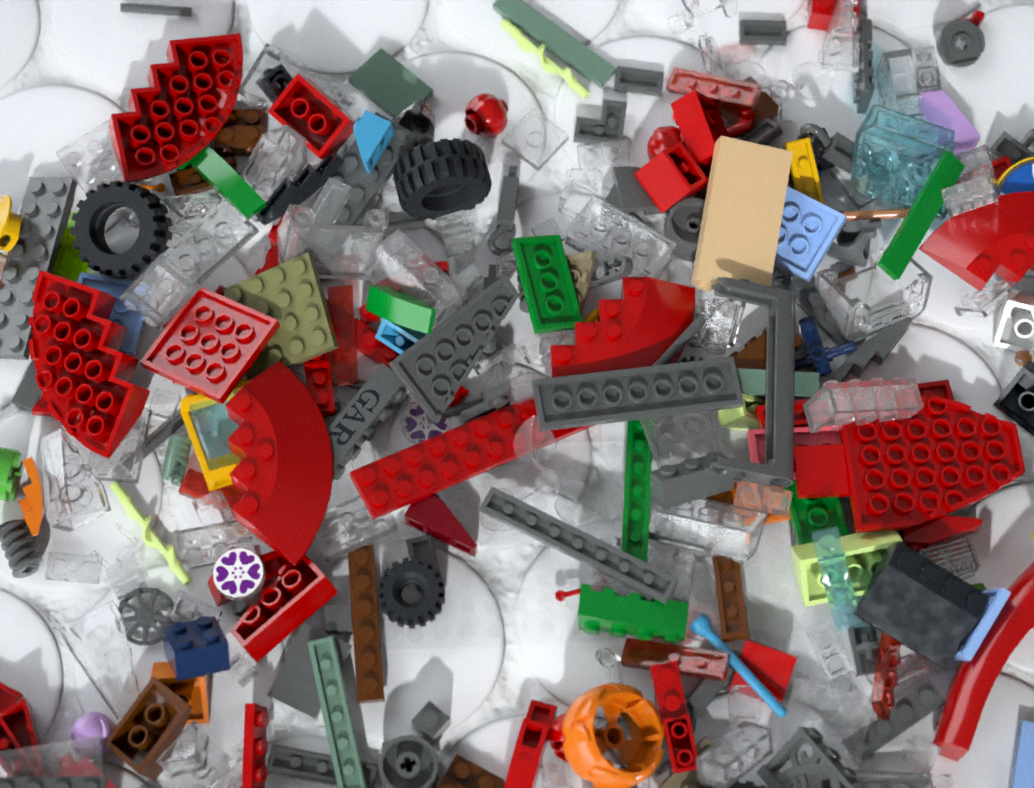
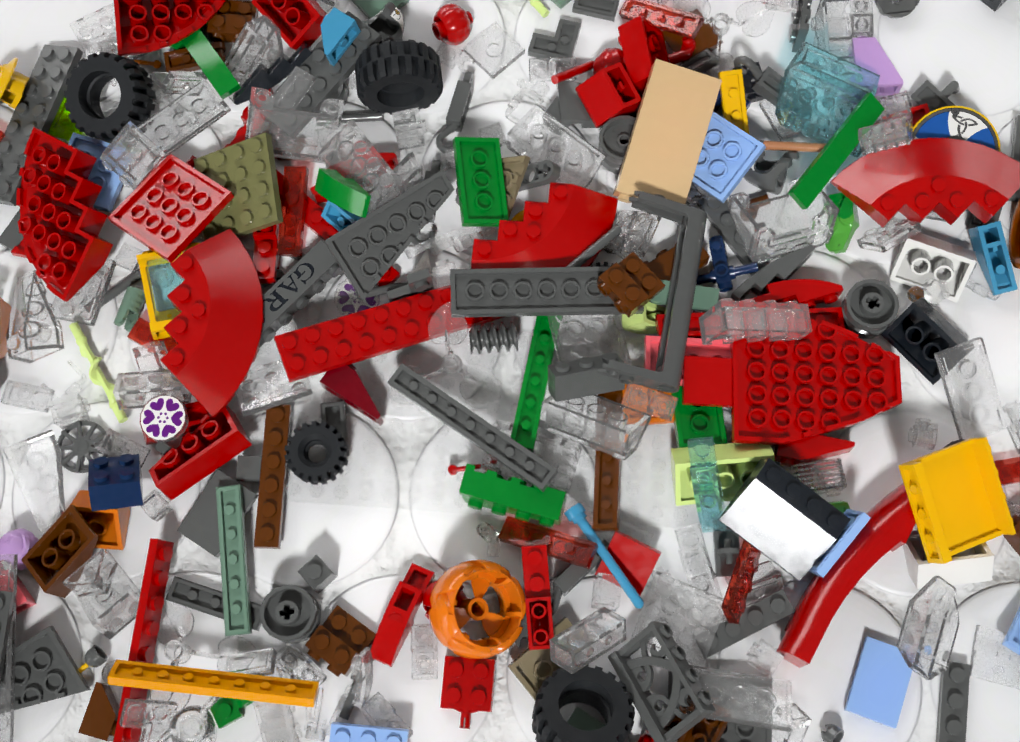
camera: 15 degrees right, 5 degrees up
(584, 448) = (493, 337): none -> dark grey piece
(627, 156) = (572, 72): none -> red bar
(725, 377) = (630, 284): none -> reddish brown plate
(906, 365) = (801, 290): none -> red slope
(940, 291) = (845, 224): none -> bright green animal
(978, 377) = (869, 308): none -> dark grey wheel

